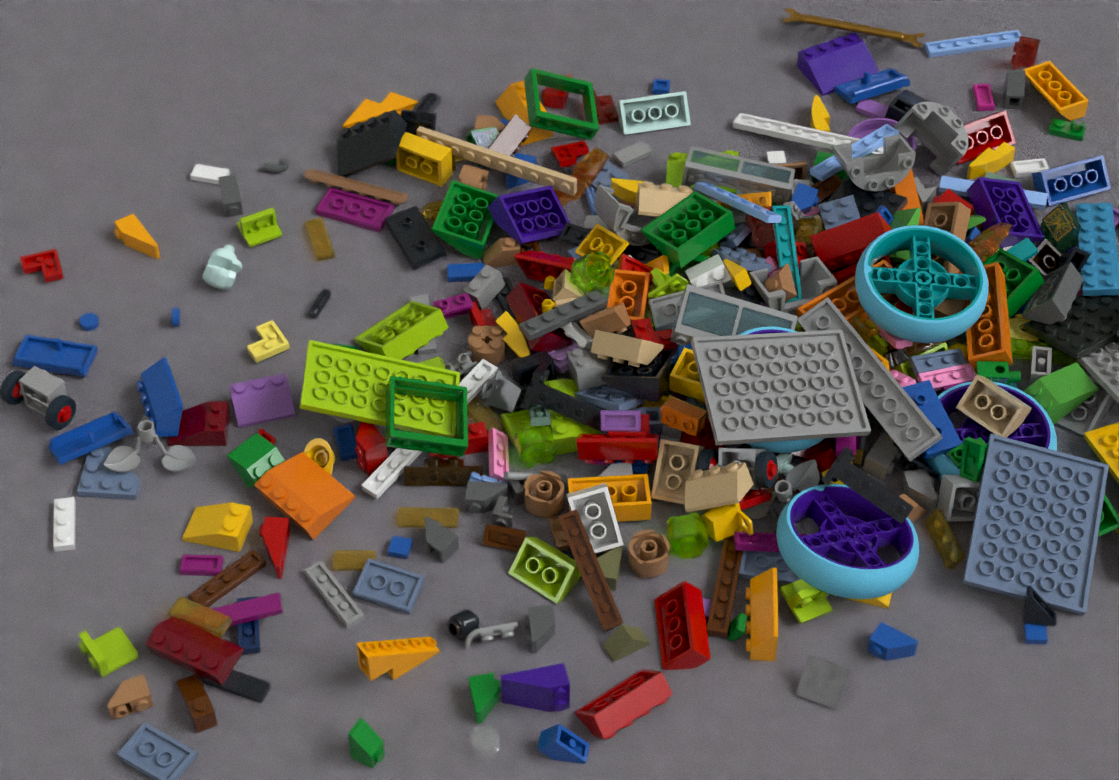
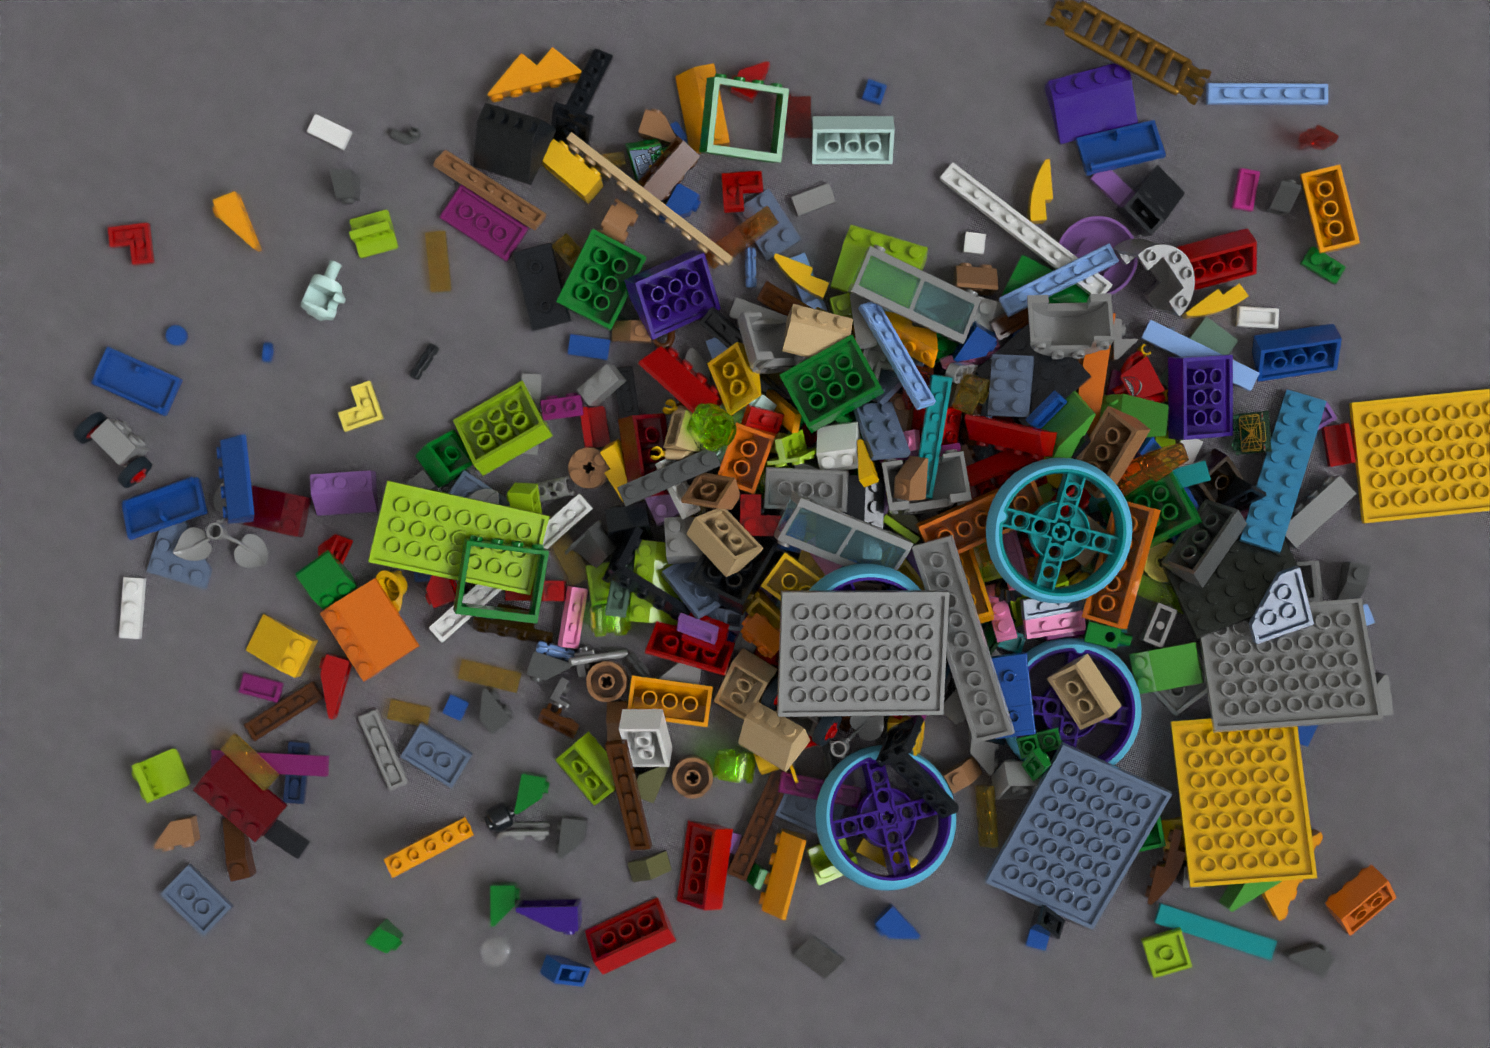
camera: 15 degrees right, 40 degrees up
(491, 596) = (531, 790): none -> green slope

